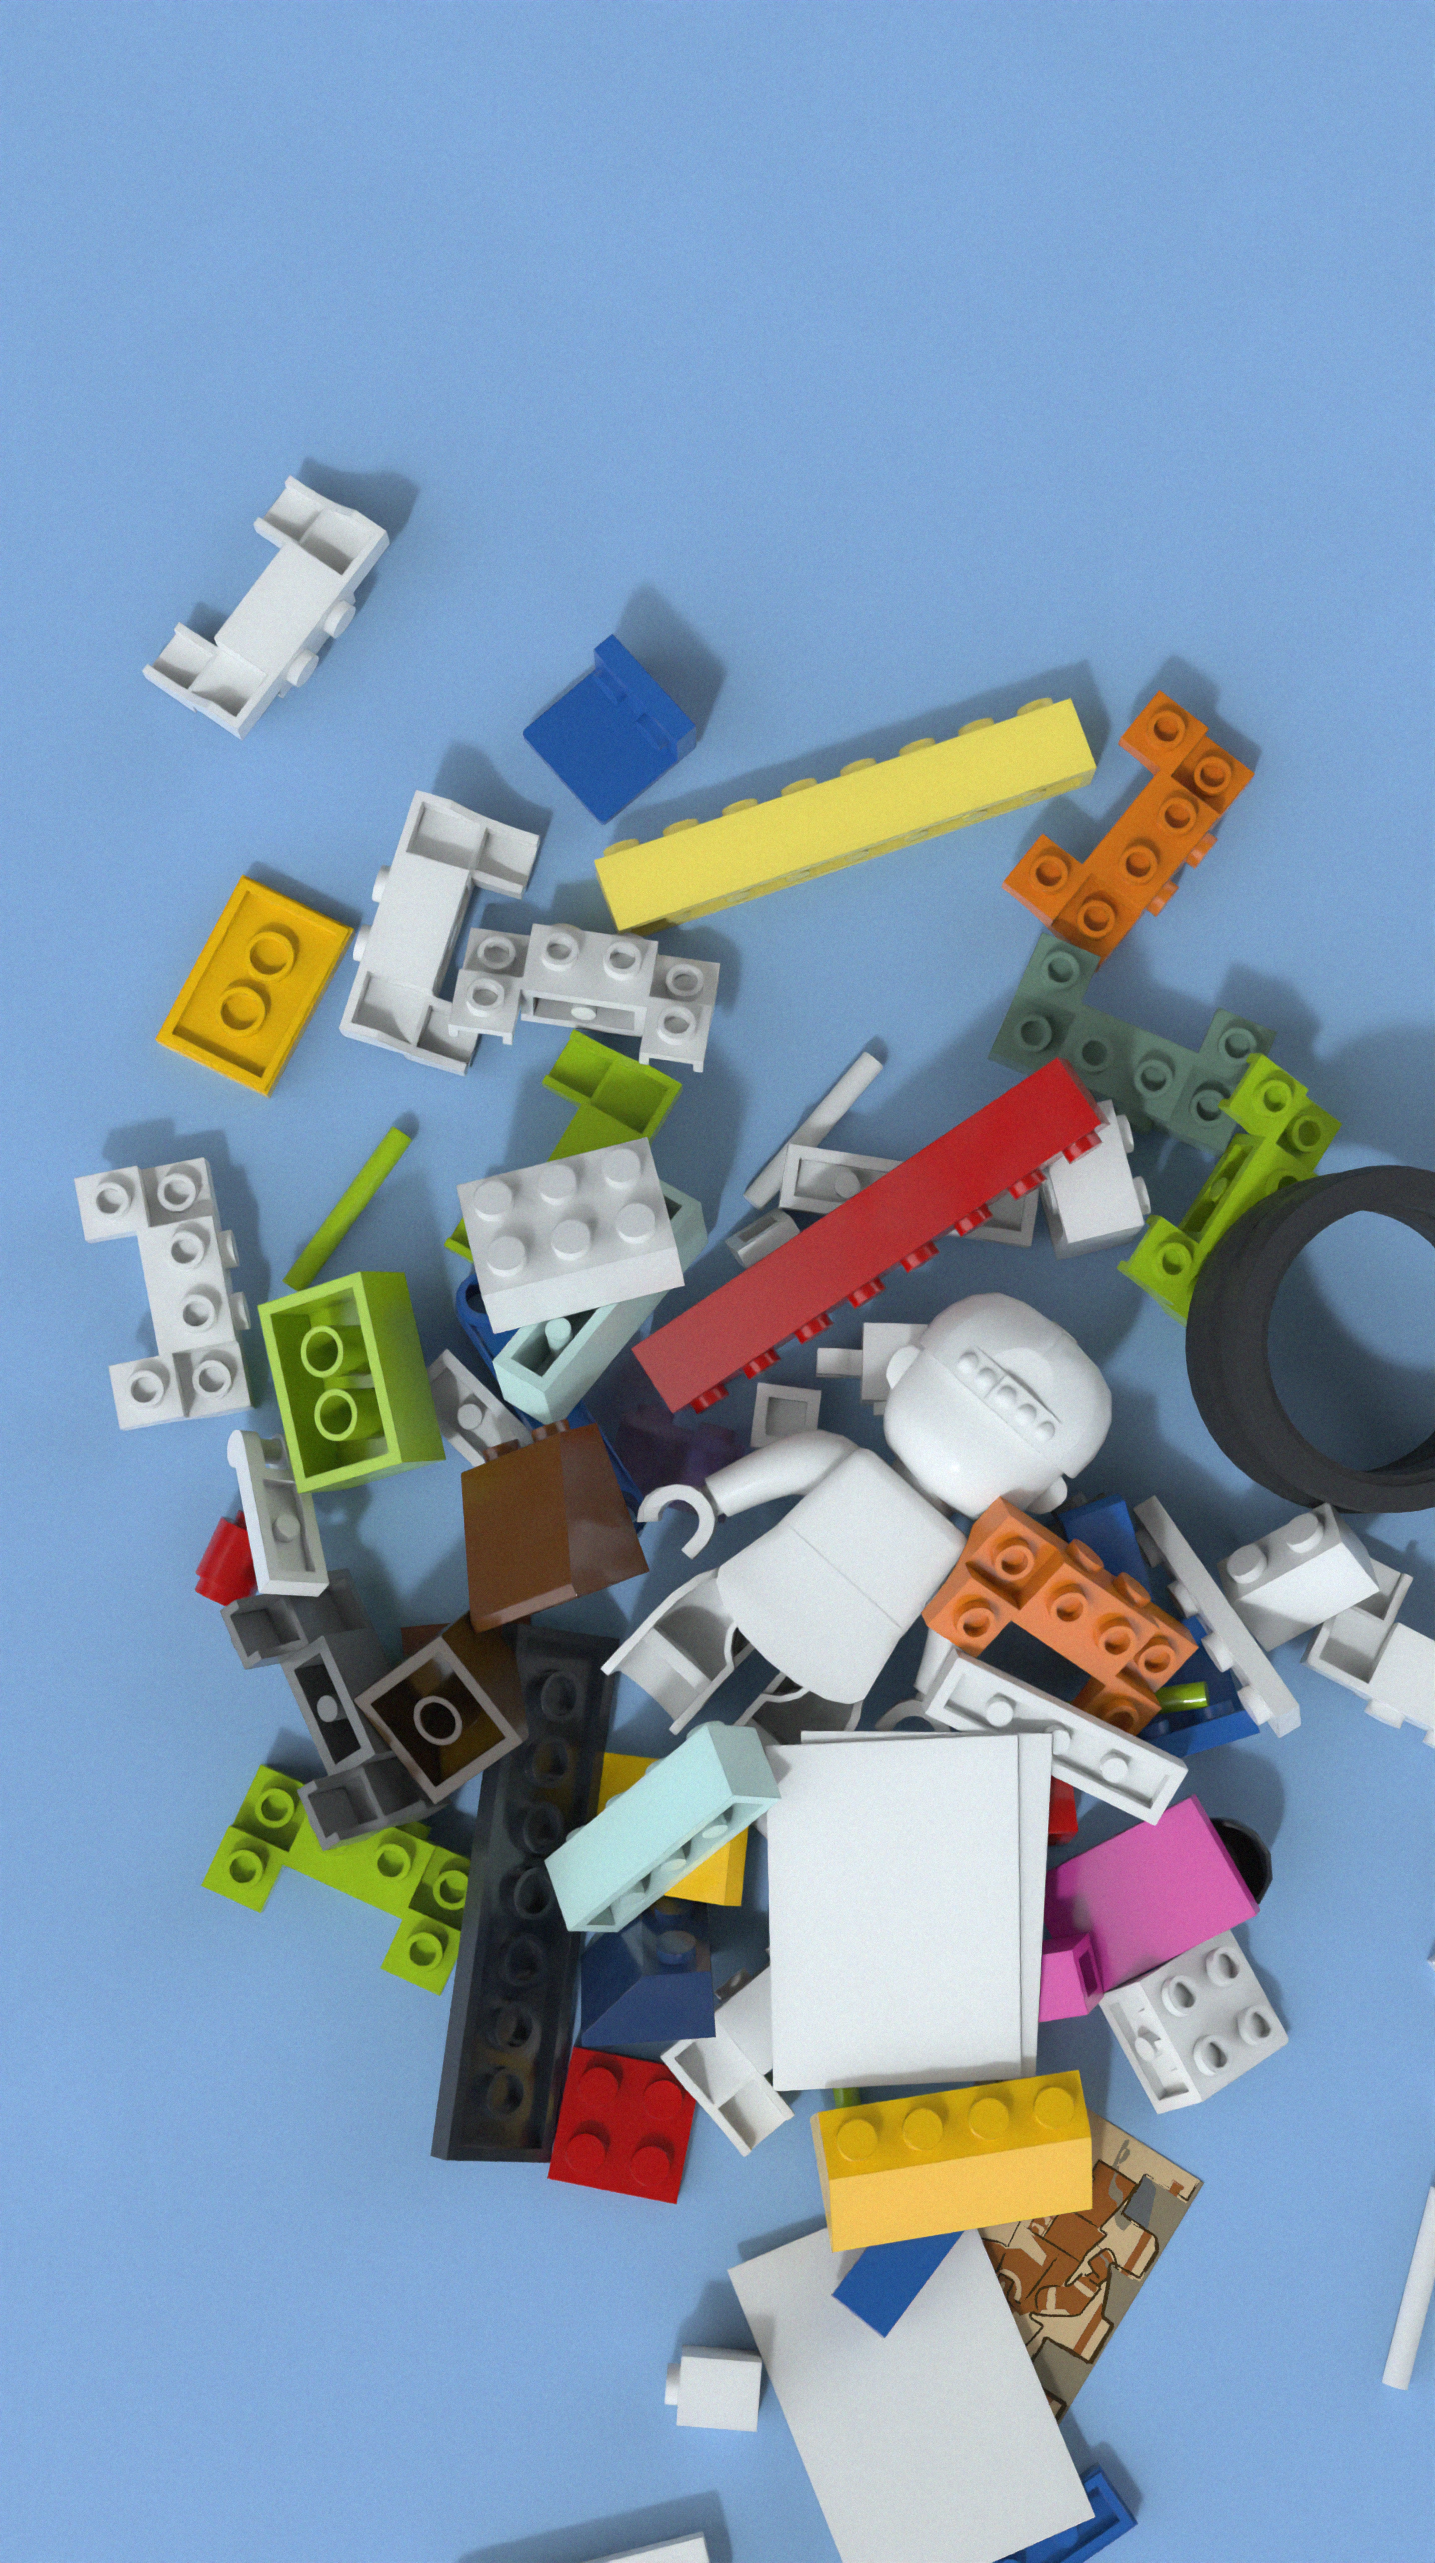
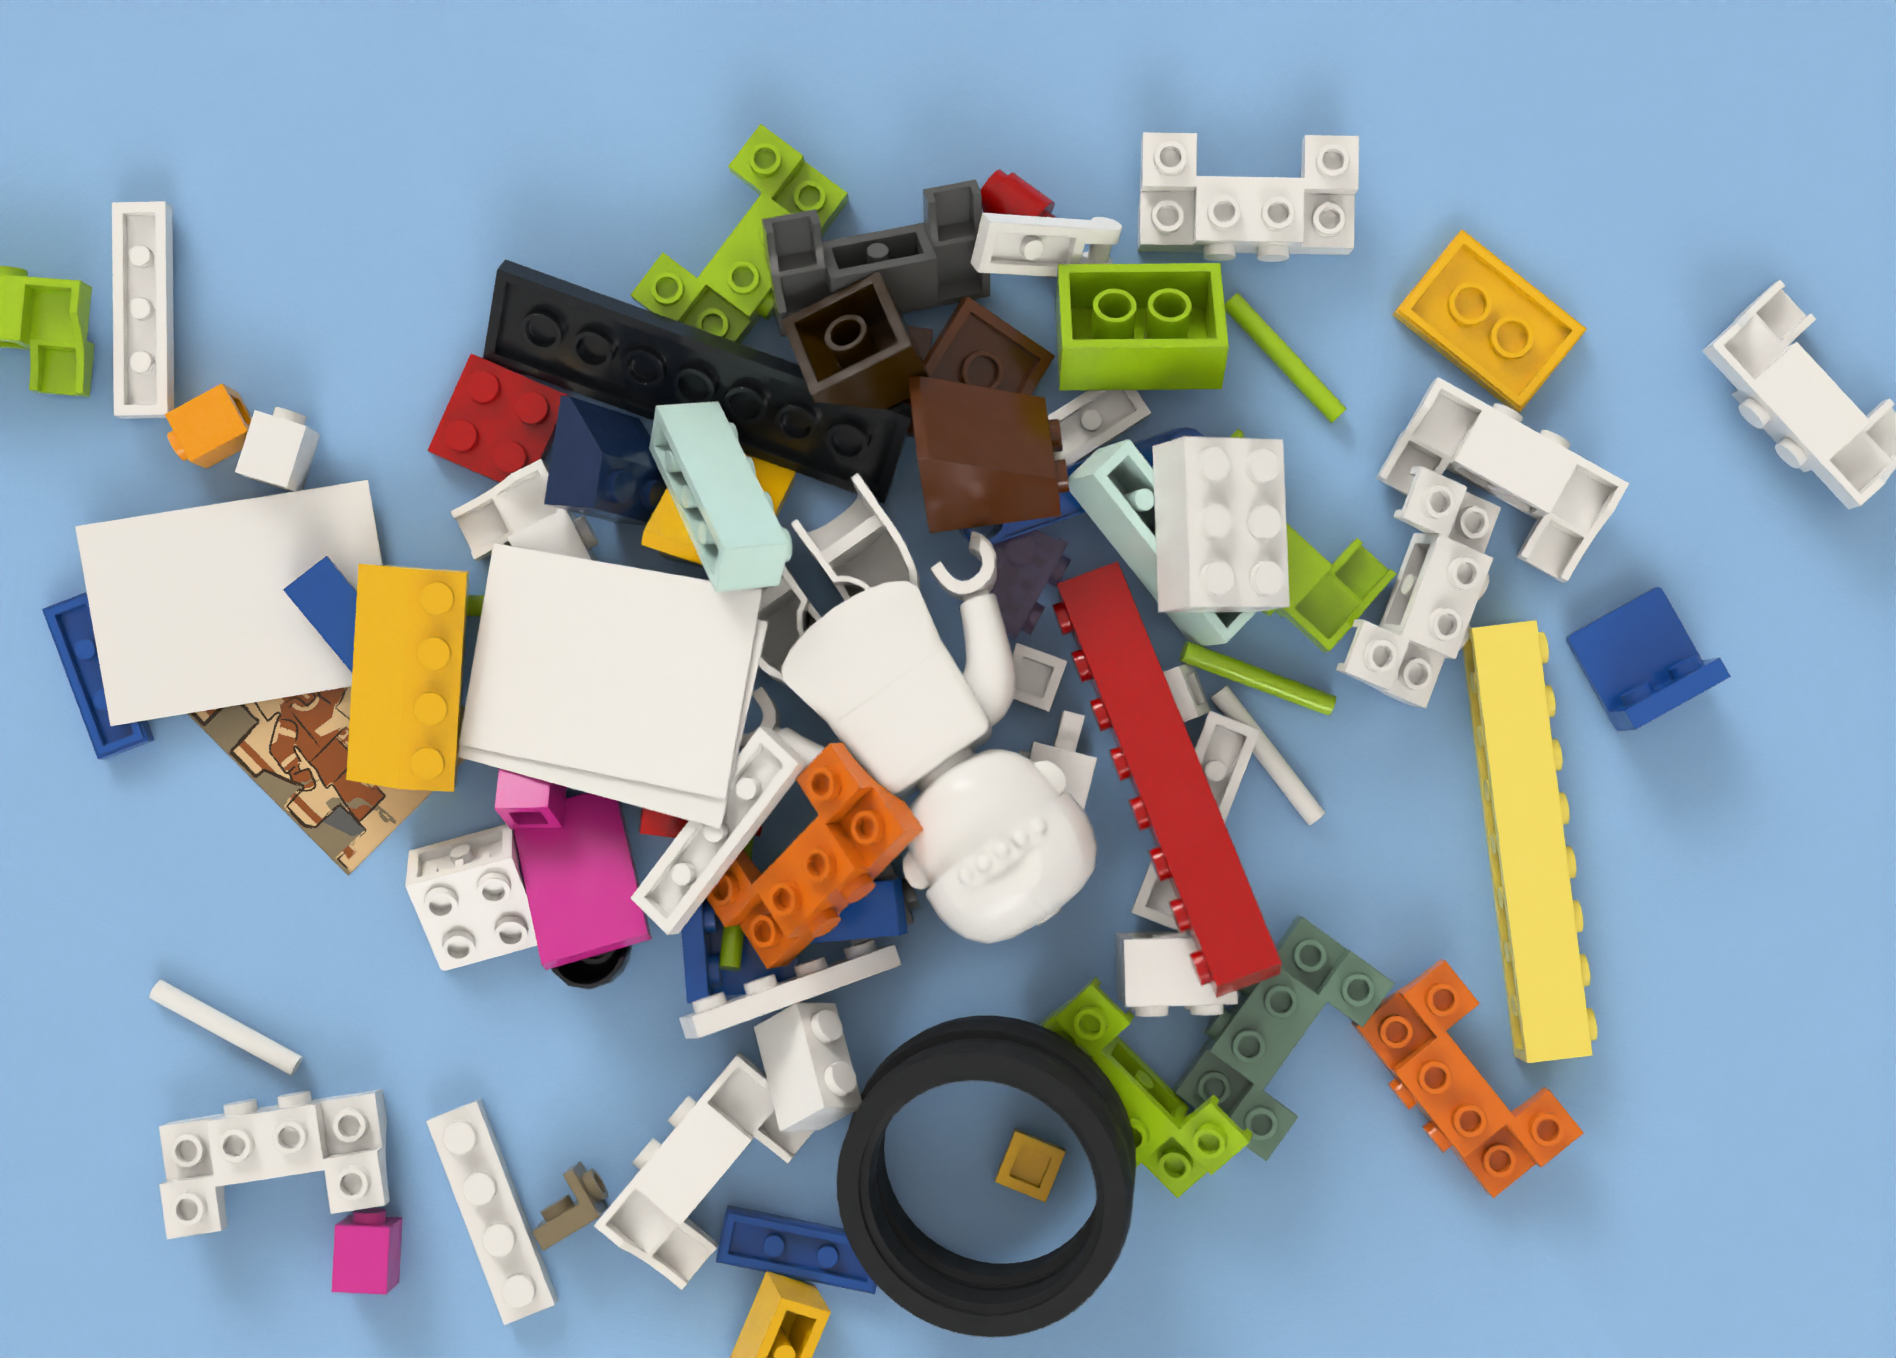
camera: 100 degrees right, 5 degrees up
(420, 1557) = (986, 352): none -> reddish brown plate
(706, 2479) = (209, 426): none -> light orange brick
(728, 1161) = (1257, 678): none -> lime bar
(1346, 1299) = (1030, 1165): none -> yellow plate

